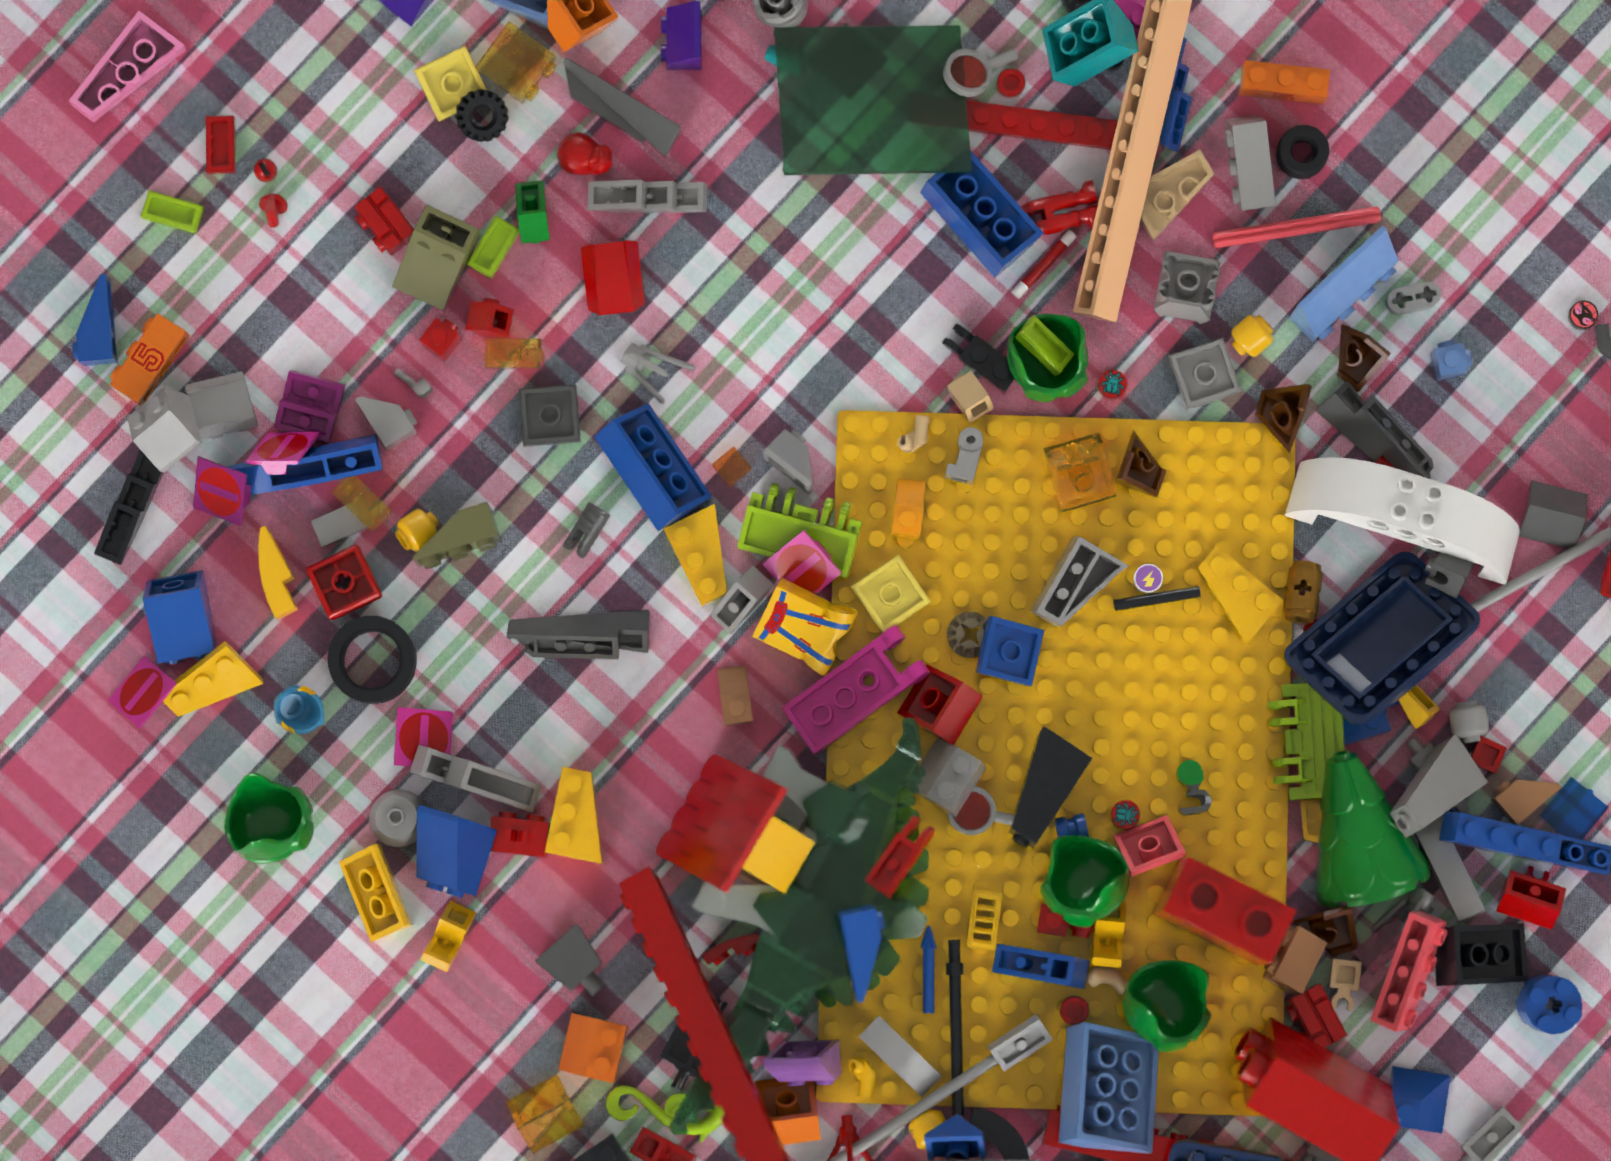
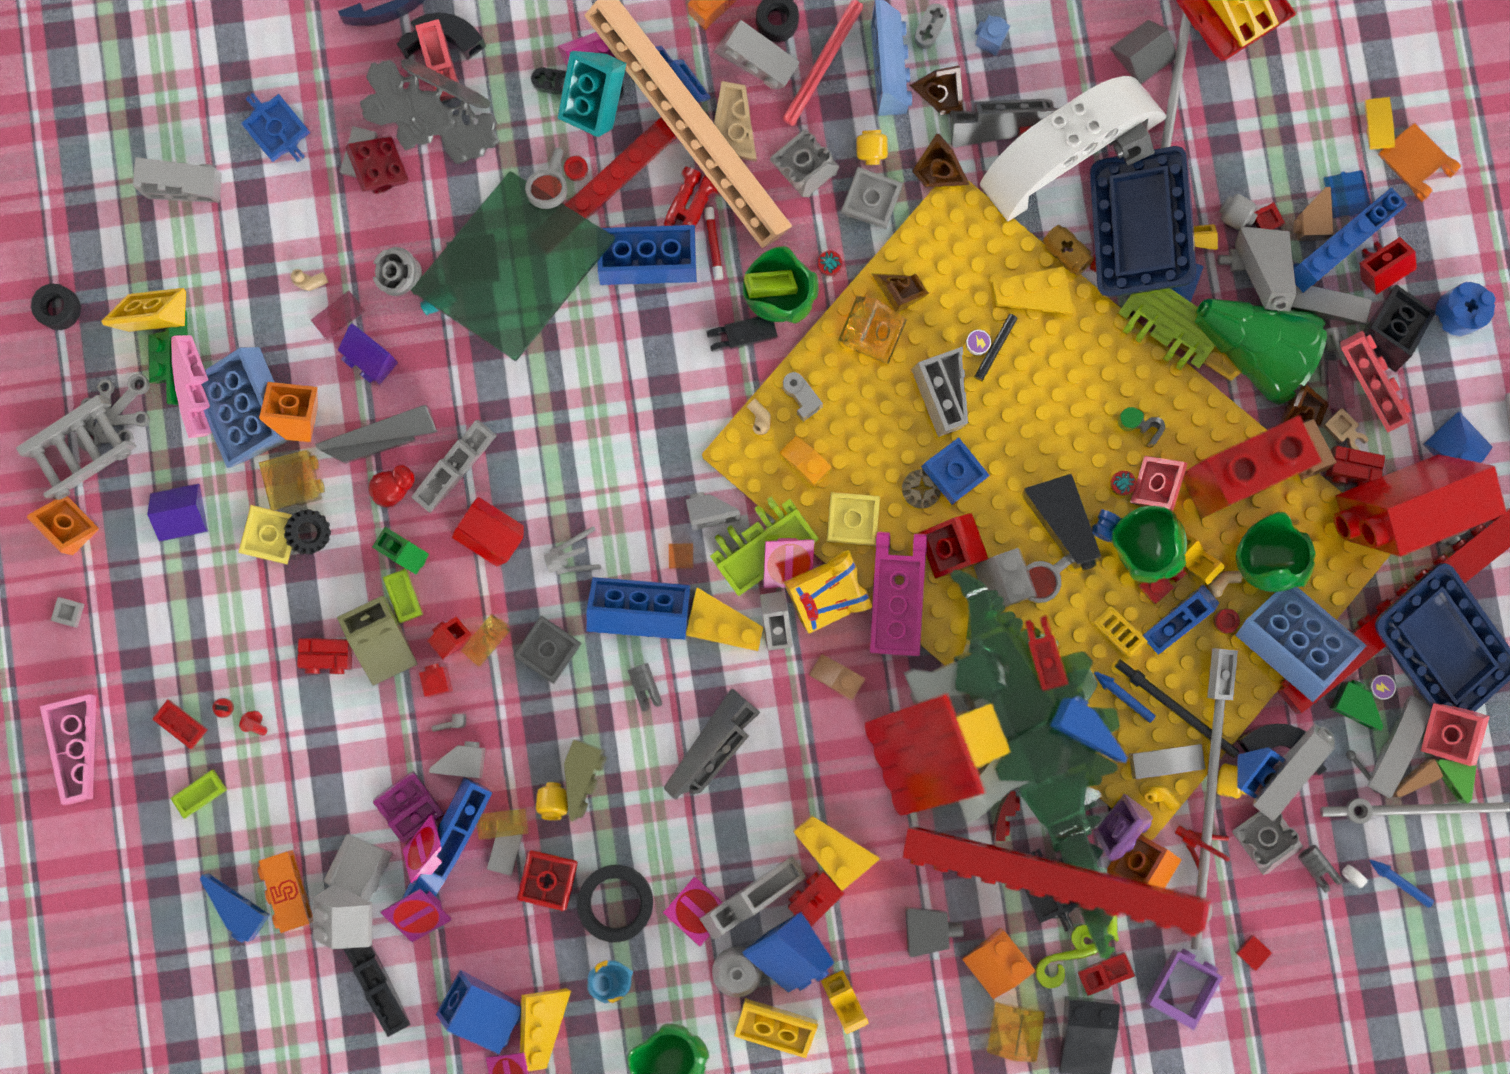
camera: 55 degrees left, 0 degrees up
(275, 575) = (503, 923): yellow slope -> none
(970, 396) = (763, 360): tan brick -> none

